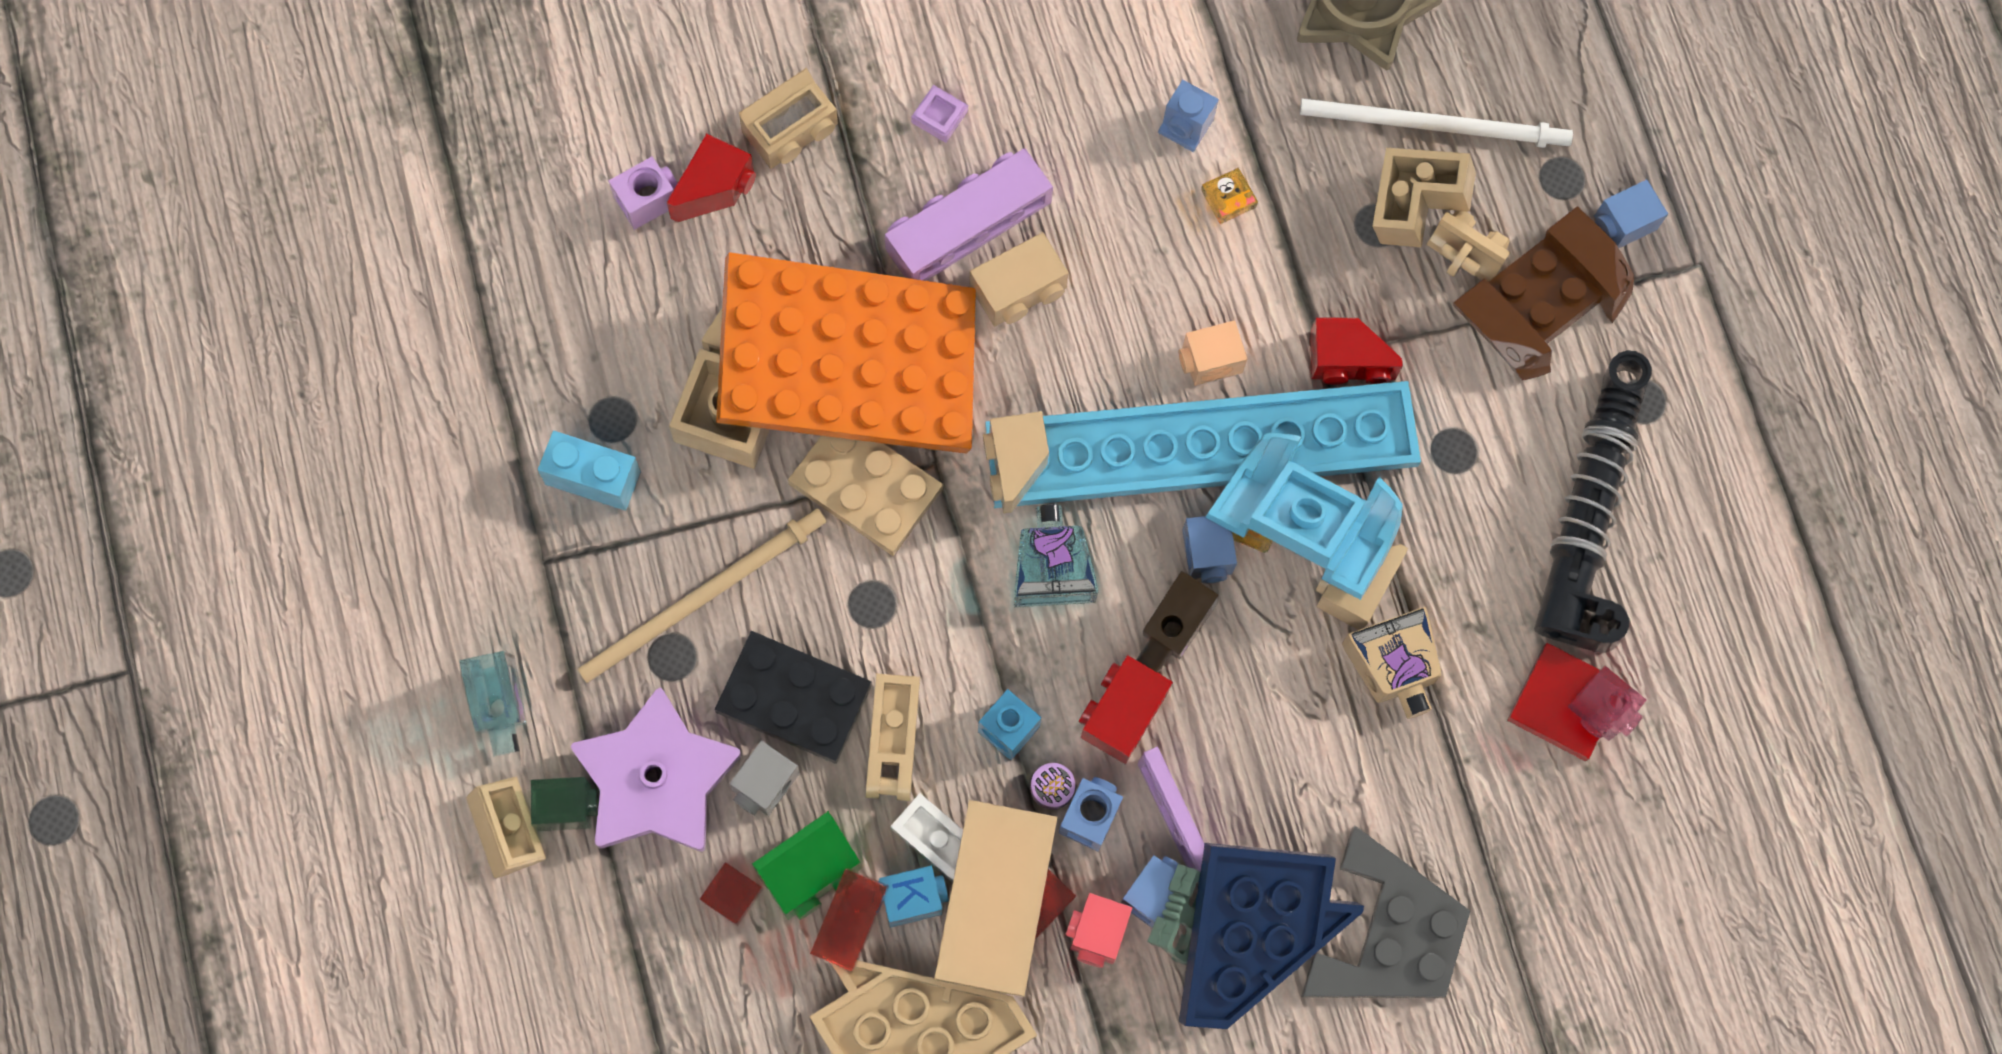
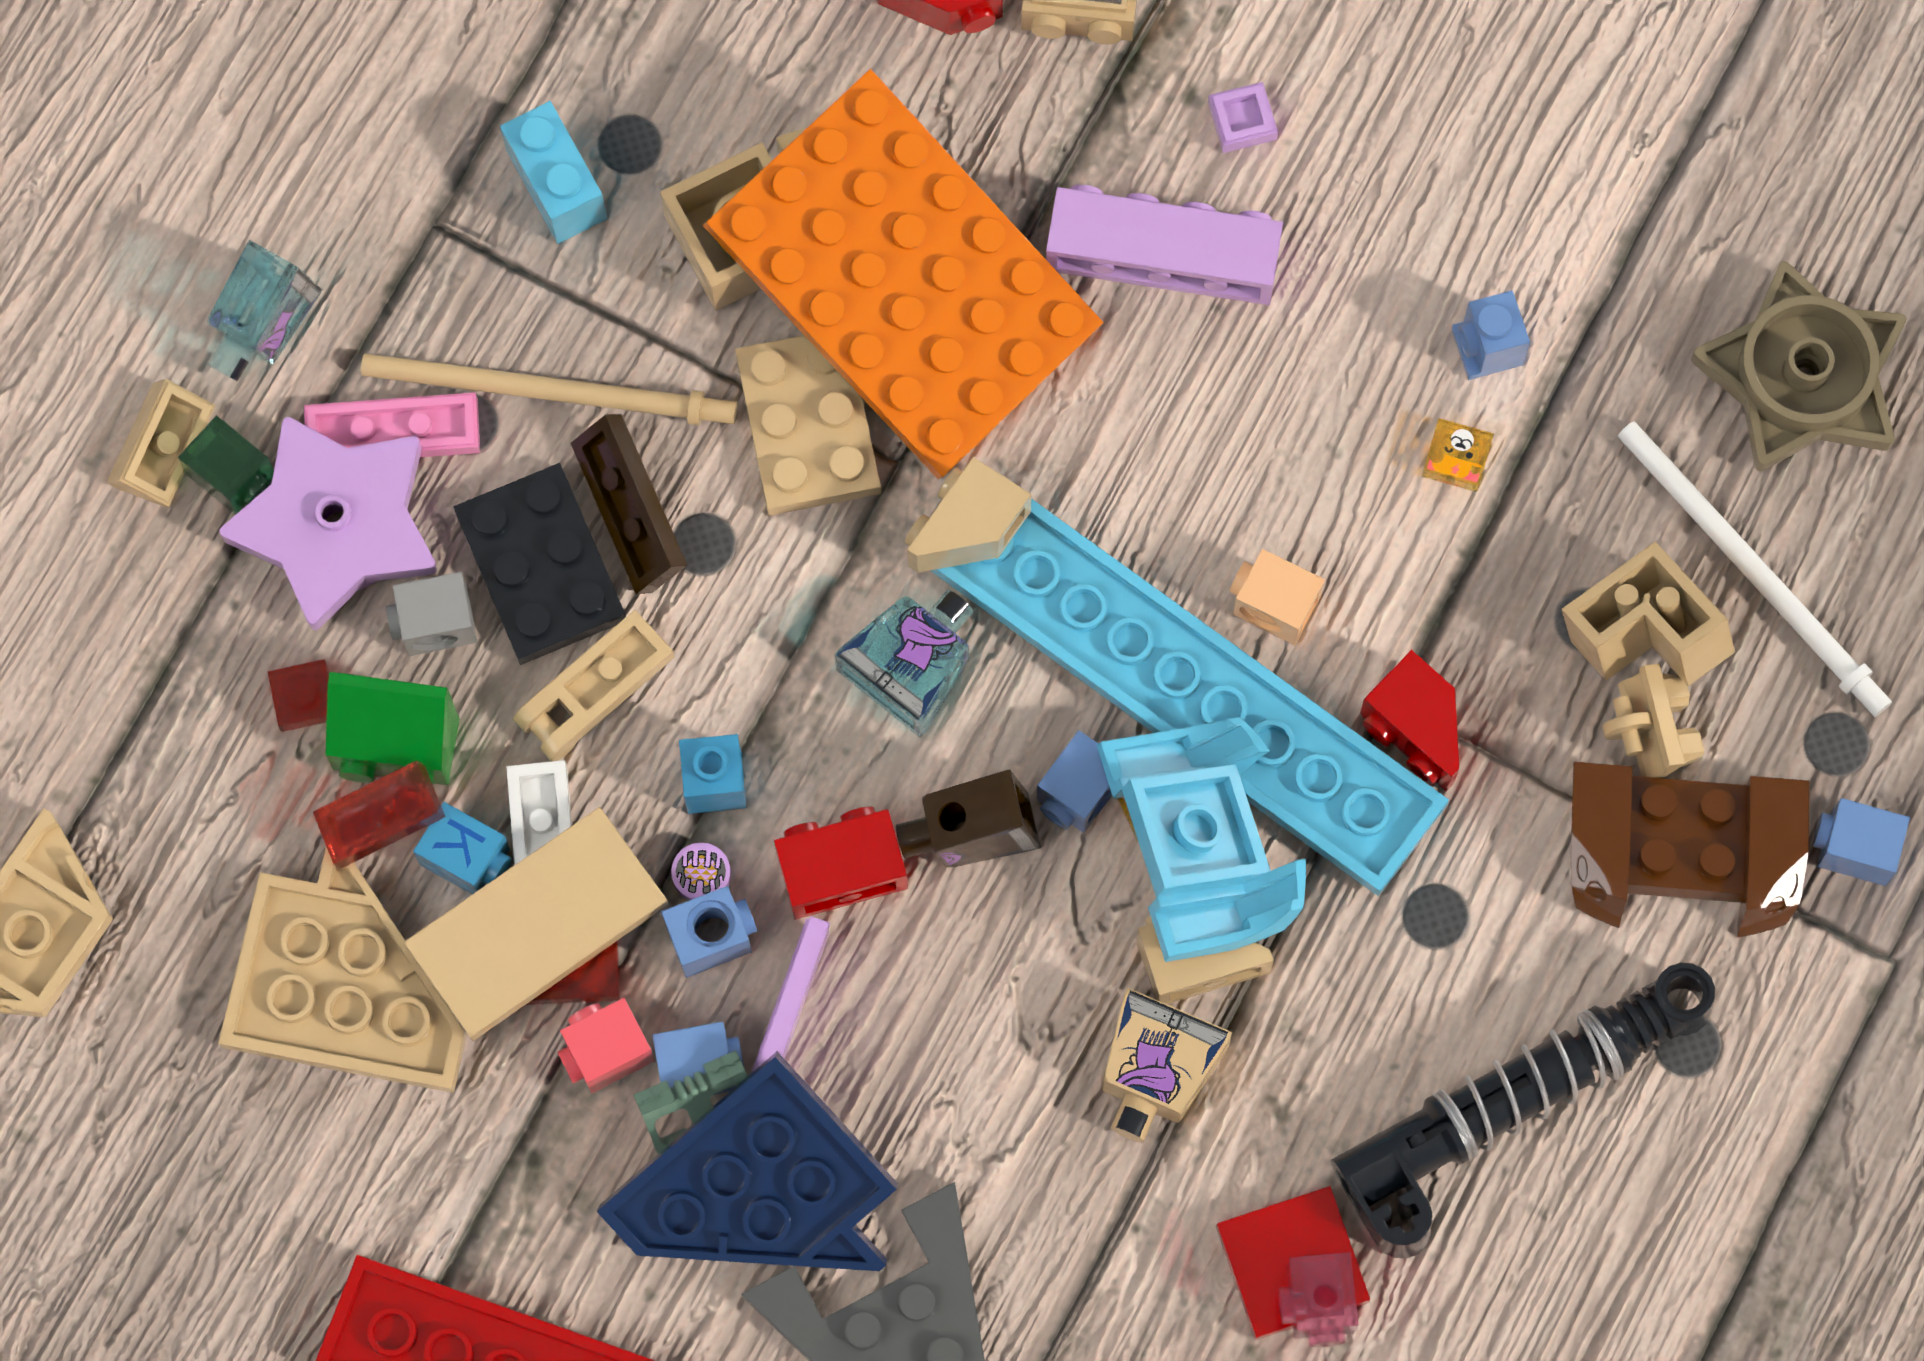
camera: 50 degrees right, 0 degrees up
(659, 667) = (440, 422): none -> bright pink tile
(813, 618) = (628, 504): none -> dark brown plate
(1019, 280) = (1152, 352): tan brick -> none

